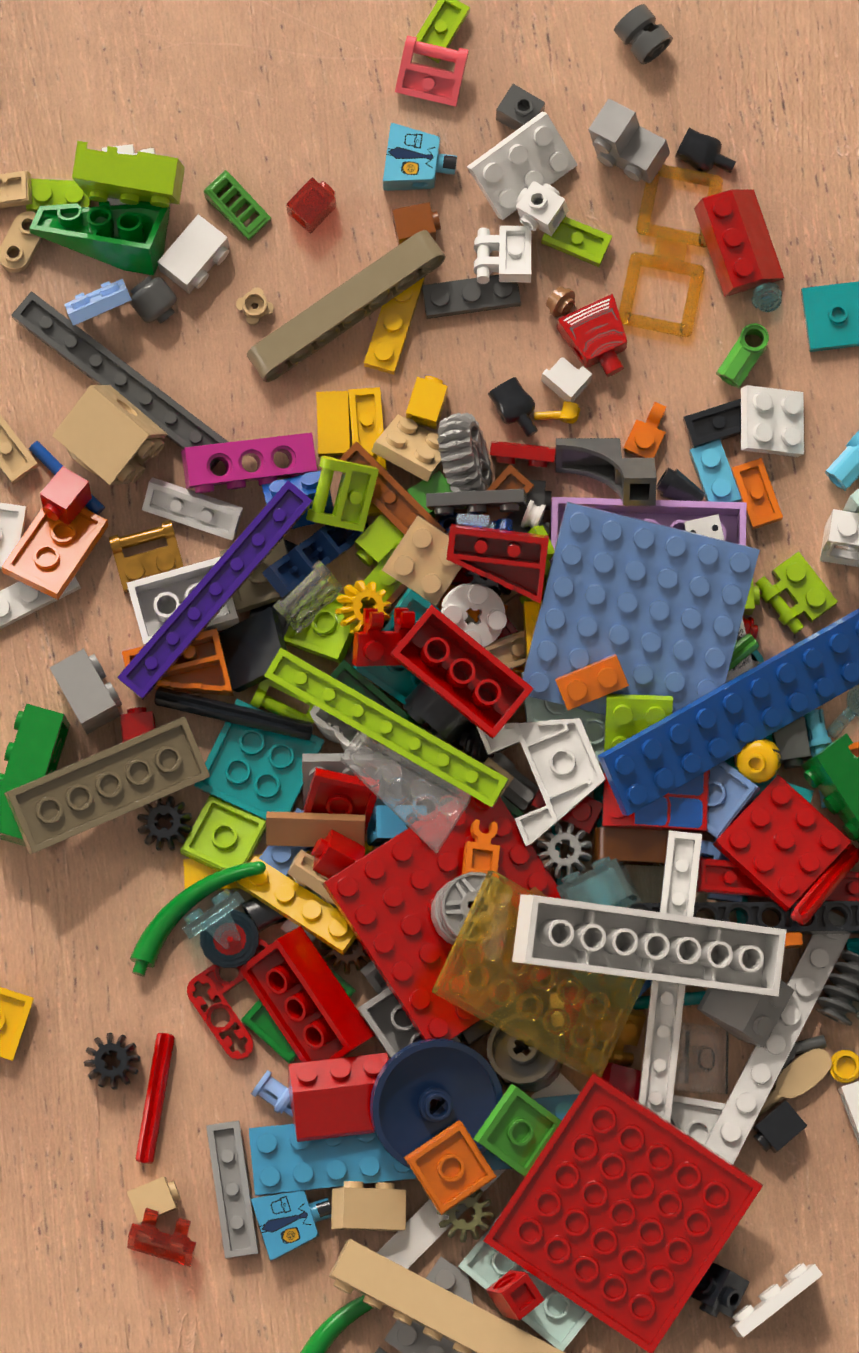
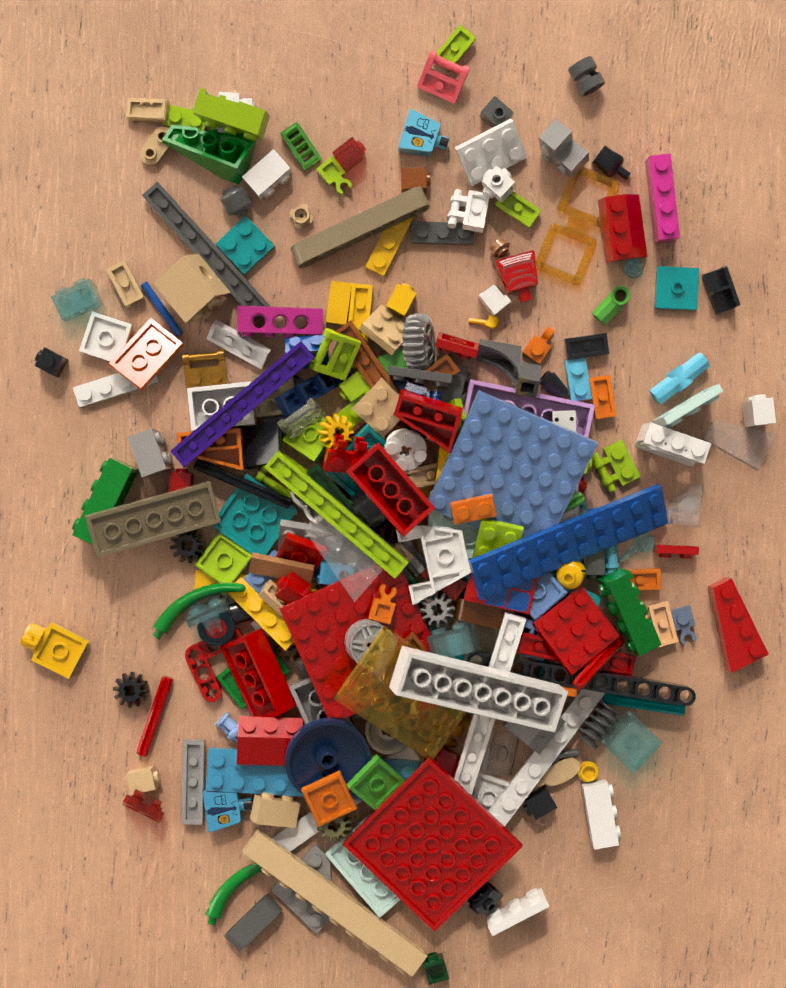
camera: 10 degrees right, 10 degrees up
(65, 496) = (157, 323): brick -> none
(97, 302) = (200, 196): light blue plate -> none
(178, 362) = (245, 245): none -> teal plate
(292, 235) = (332, 173): none -> lime plate
(514, 405) = (457, 311): black piece -> none
(515, 1295) = (356, 882): red brick -> none
(533, 515) = (455, 389): white bush -> none
(772, 421) = (621, 351): white plate -> none
(789, 190) = (662, 198): none -> dark pink brick

